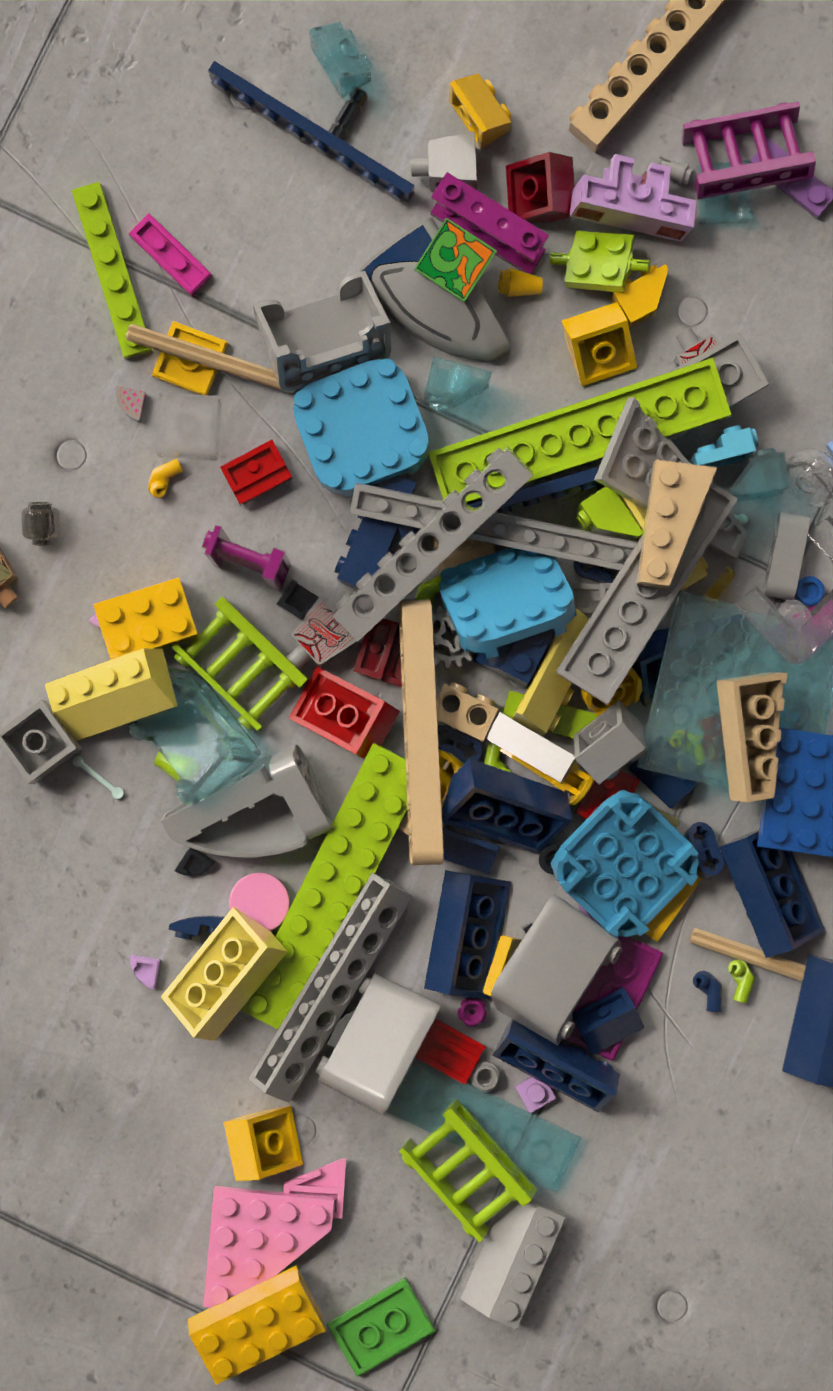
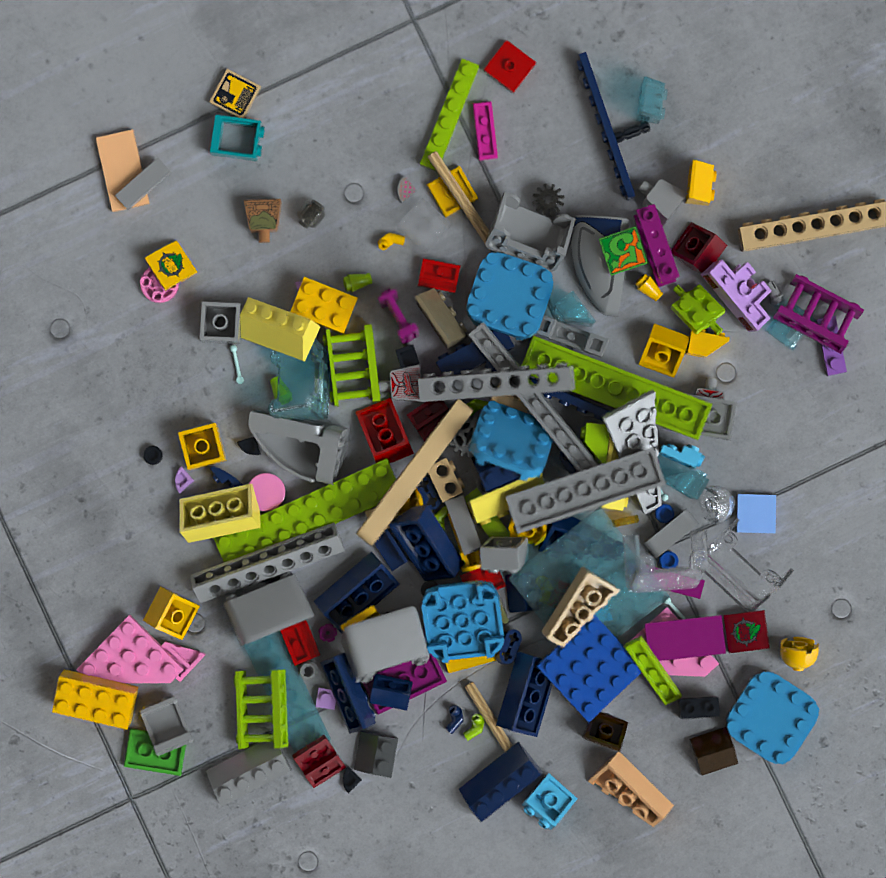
camera: 45 degrees right, 0 degrees up
(85, 969) = (153, 455): none -> black tile
(136, 910) = (202, 446): none -> yellow brick
(137, 153) = (510, 66): none -> red plate
(161, 560) = (356, 281): none -> lime cone
(299, 520) = (441, 317): none -> dark tan slope
(302, 271) = (544, 194): none -> clear smoke gear
(368, 1285) = (166, 725): none -> light grey panel
(478, 415) = (573, 336): none -> light grey slope
(588, 1176) = (318, 761): none -> dark red slope
(643, 1166) = (350, 779): none -> black tile
(650, 1111) = (376, 754): none -> dark grey slope
(671, 512) = (627, 463): tan wedge -> none
(758, 539) = (664, 513): none -> blue tile

